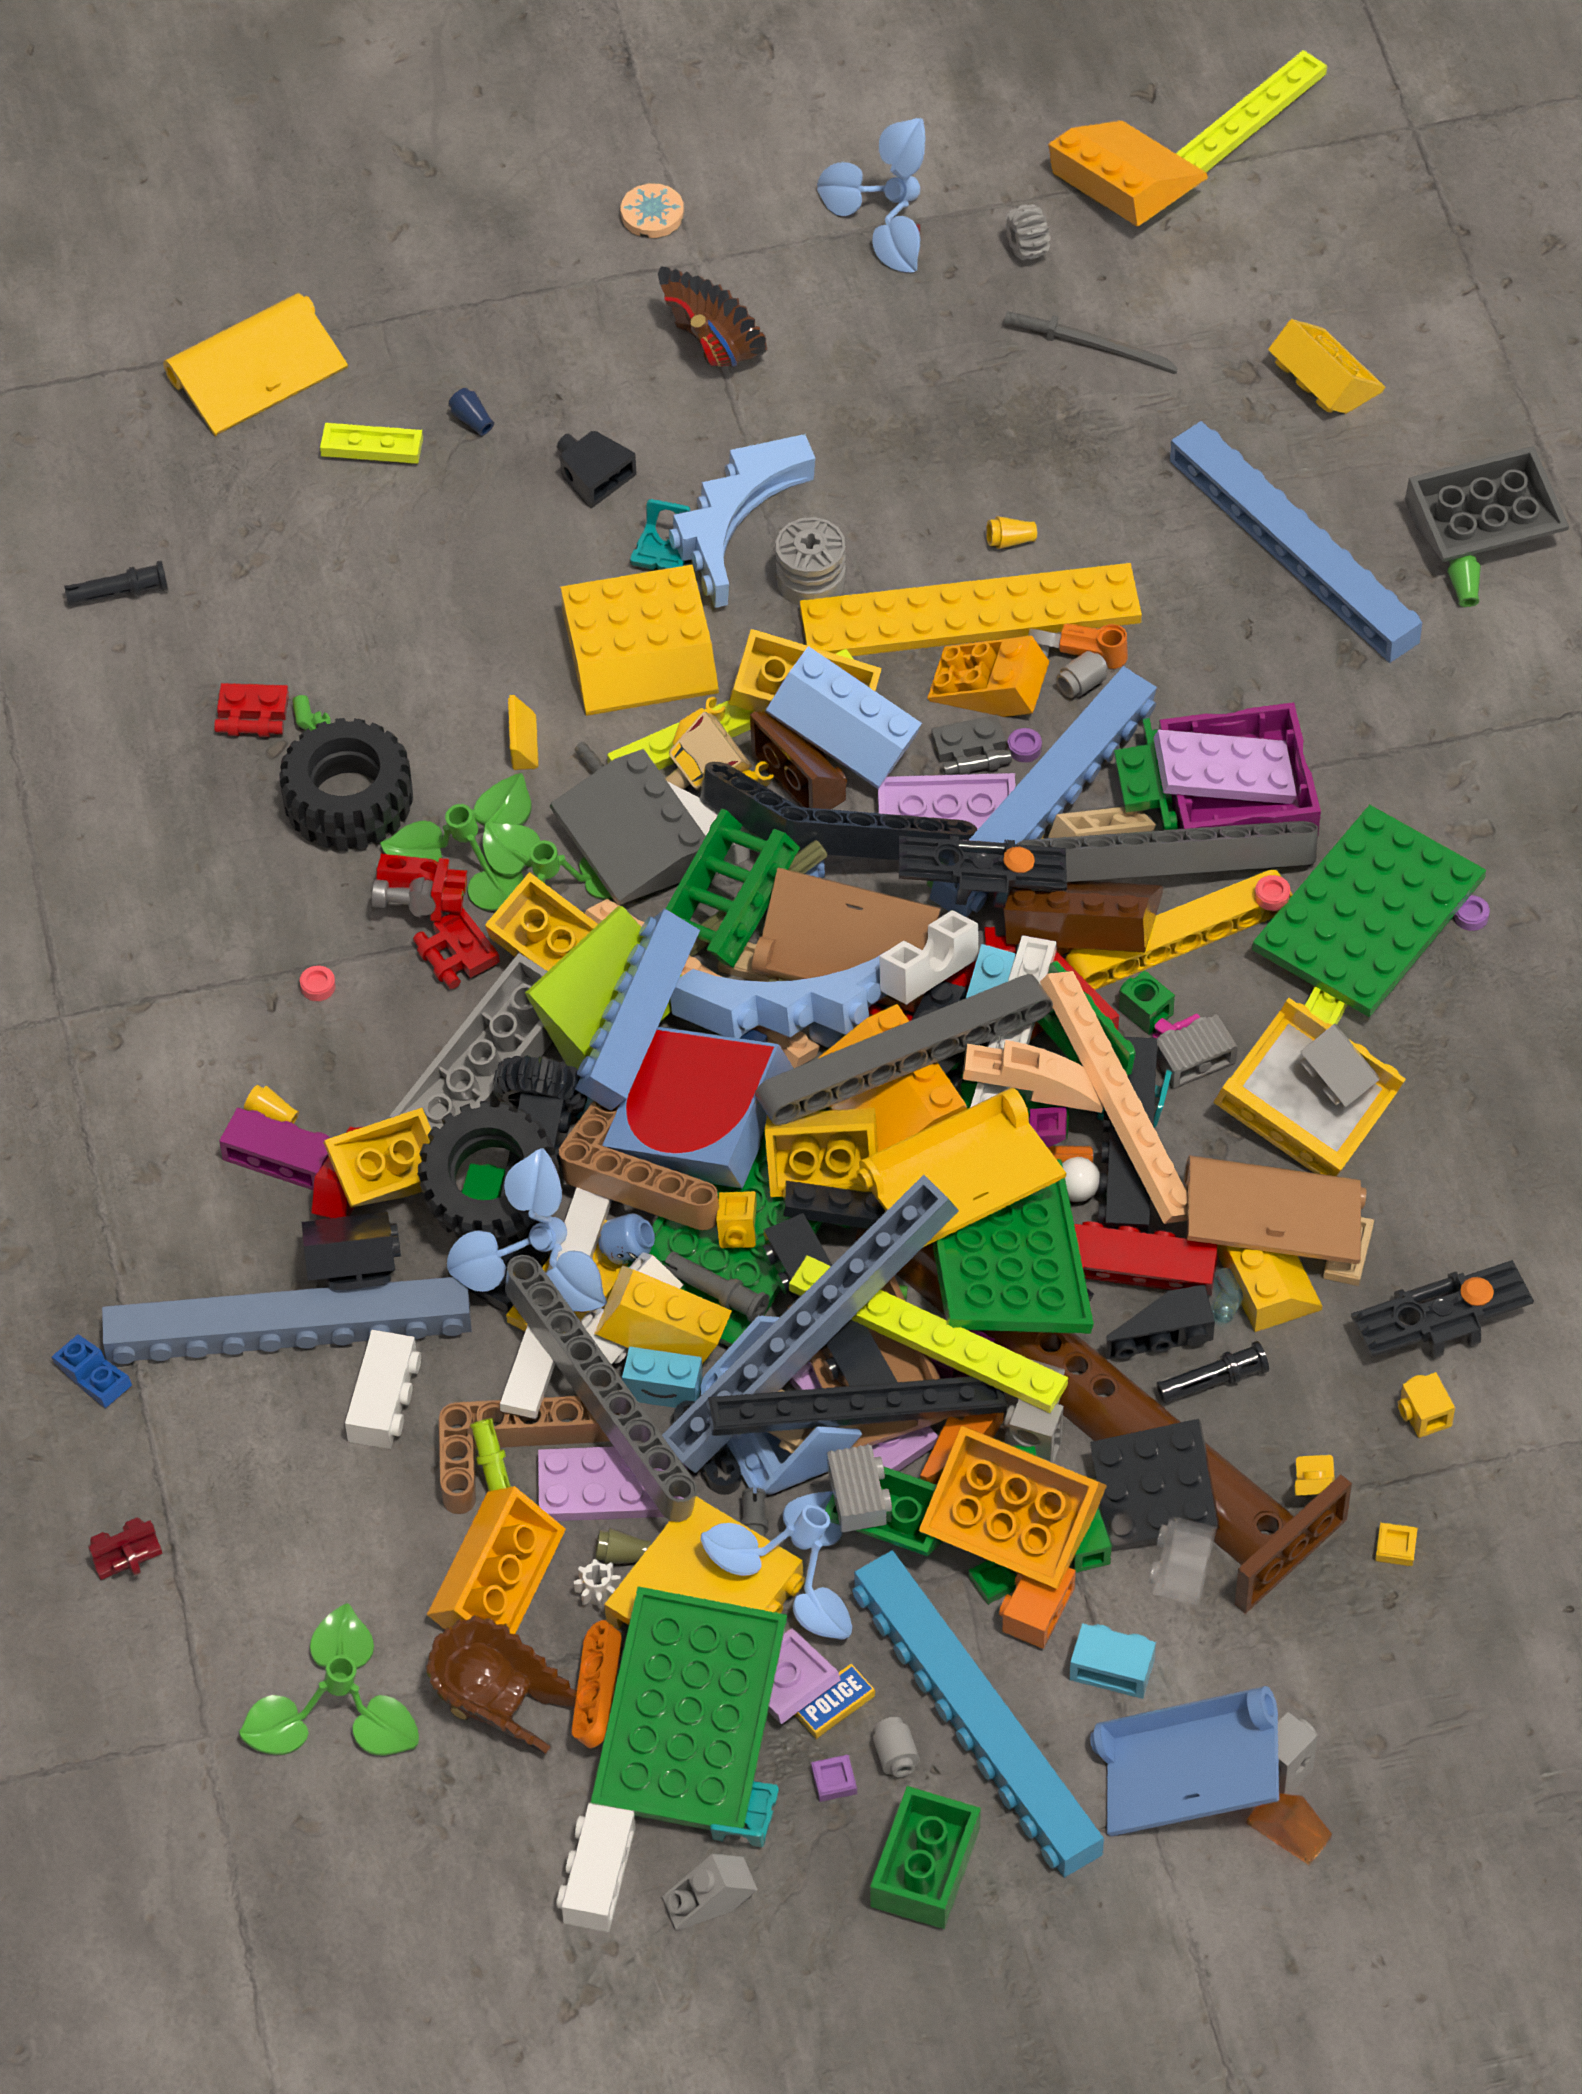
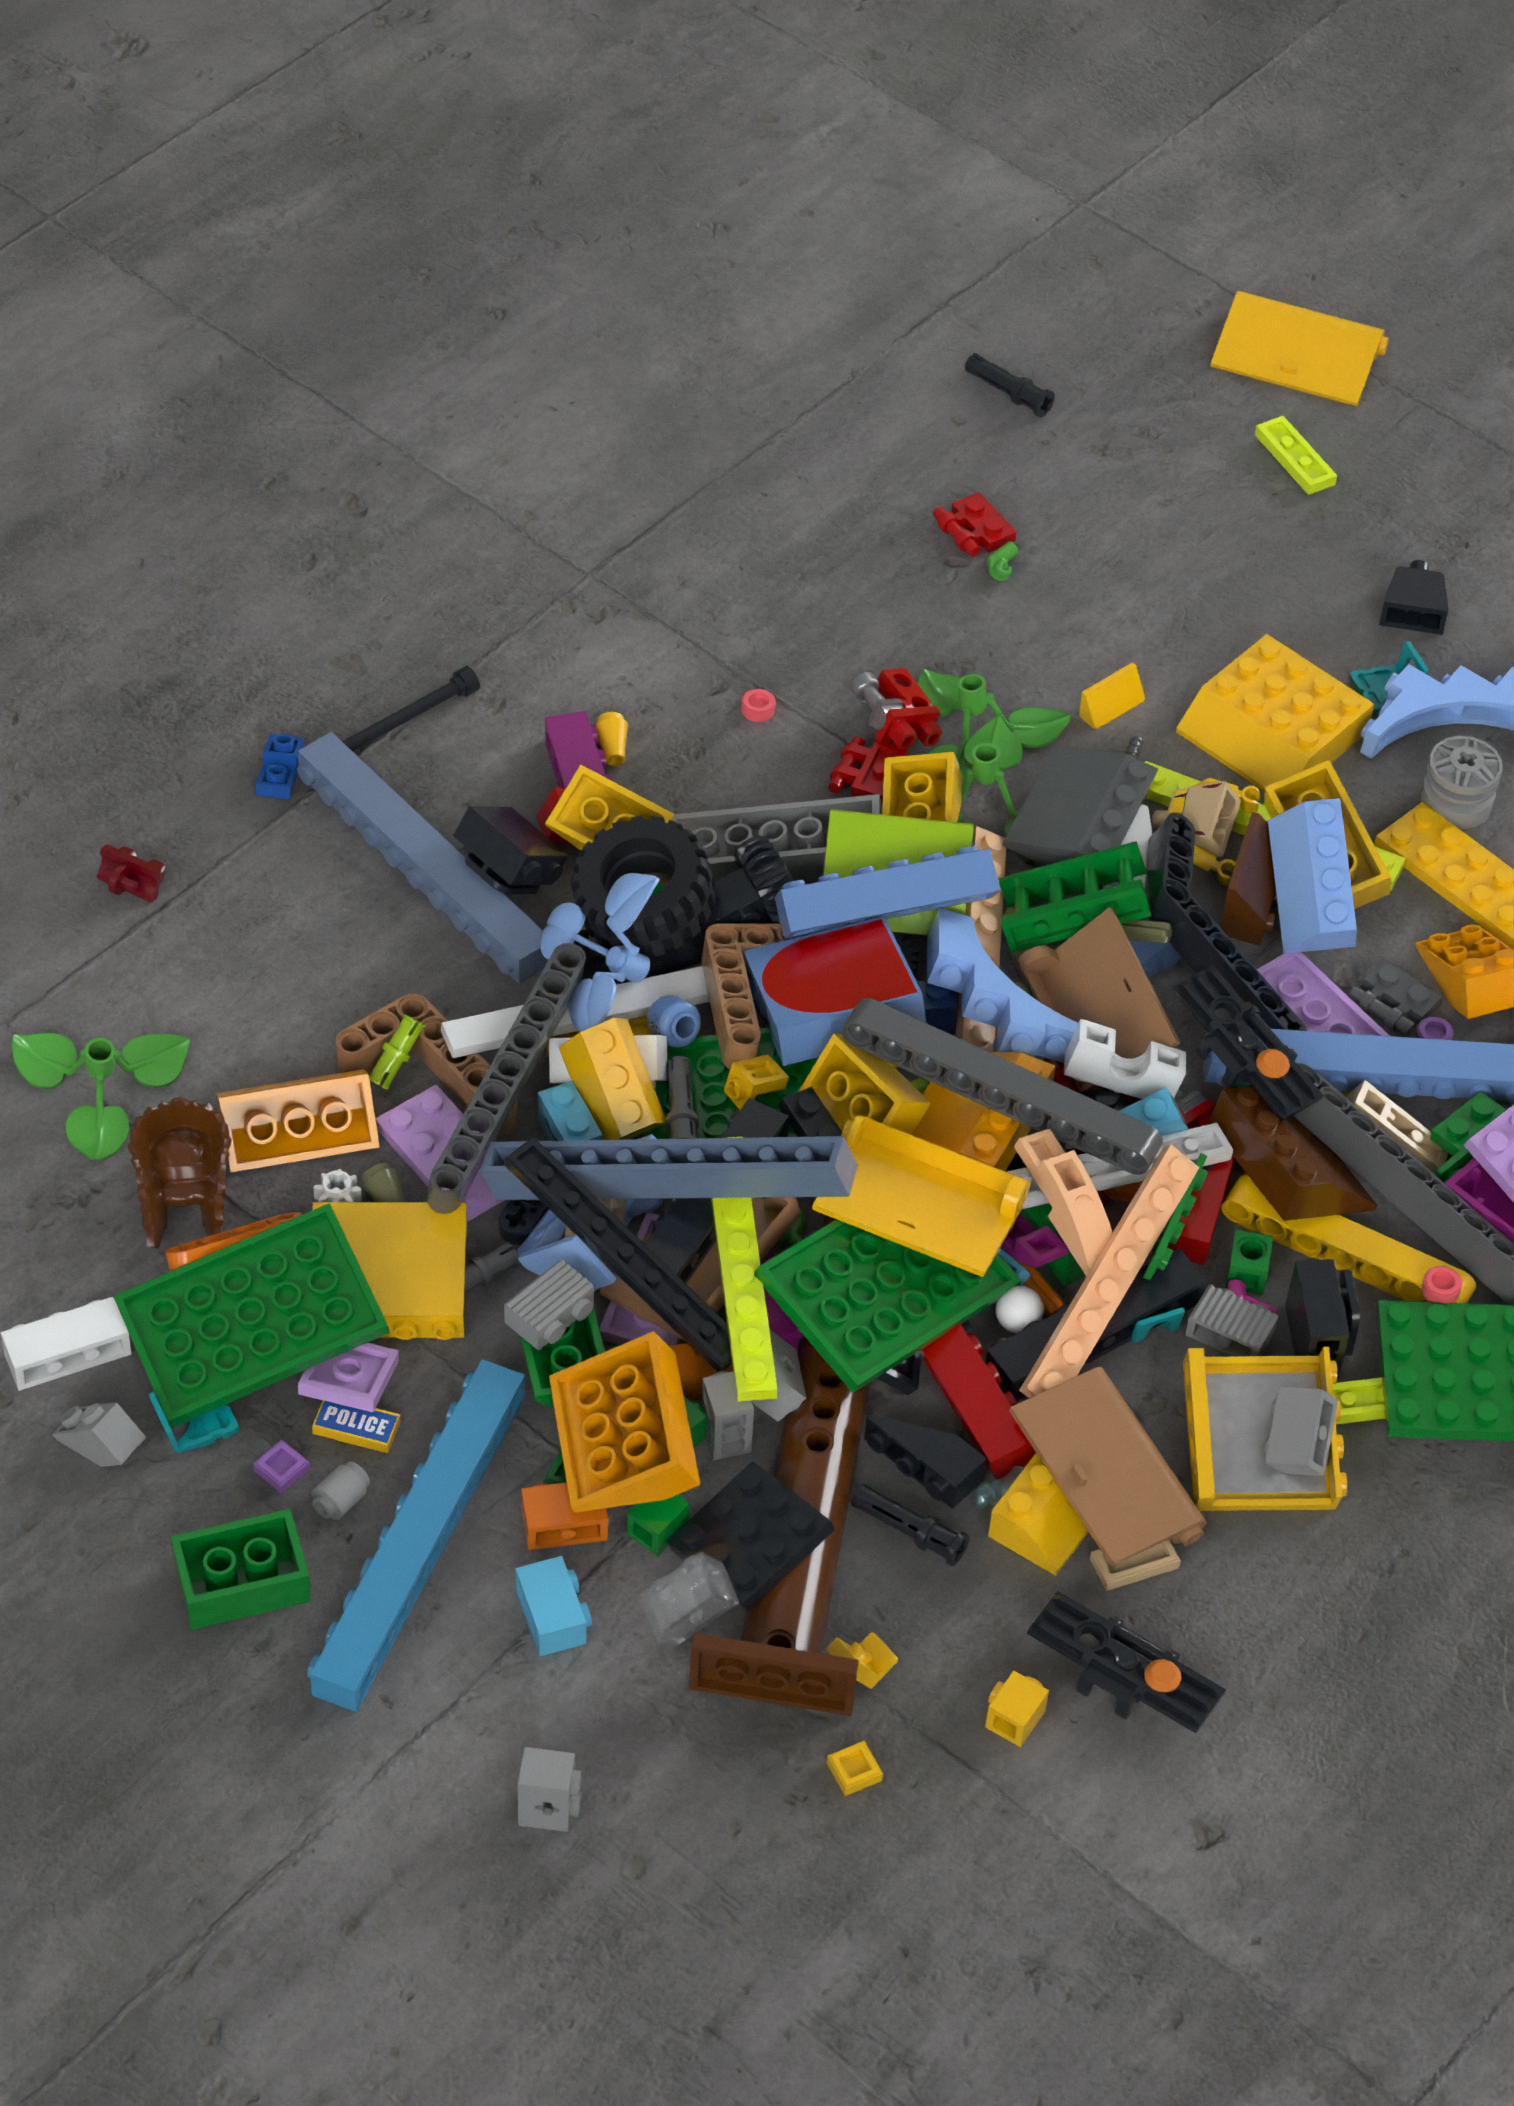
camera: 50 degrees right, 5 degrees down
(114, 1180) = (462, 683): none -> black piece
(339, 750) = (949, 641): black tyre -> none
(382, 1389) = (407, 950): white brick -> none
(469, 409) = (1389, 494): dark blue cone -> none
(810, 1527) = (432, 1256): light blue plant -> none
(1190, 1760) = (479, 1711): medium blue door -> none
(1240, 986) = (1322, 1310): none -> black brick
(1292, 1826) = (489, 1844): clear orange slope -> none

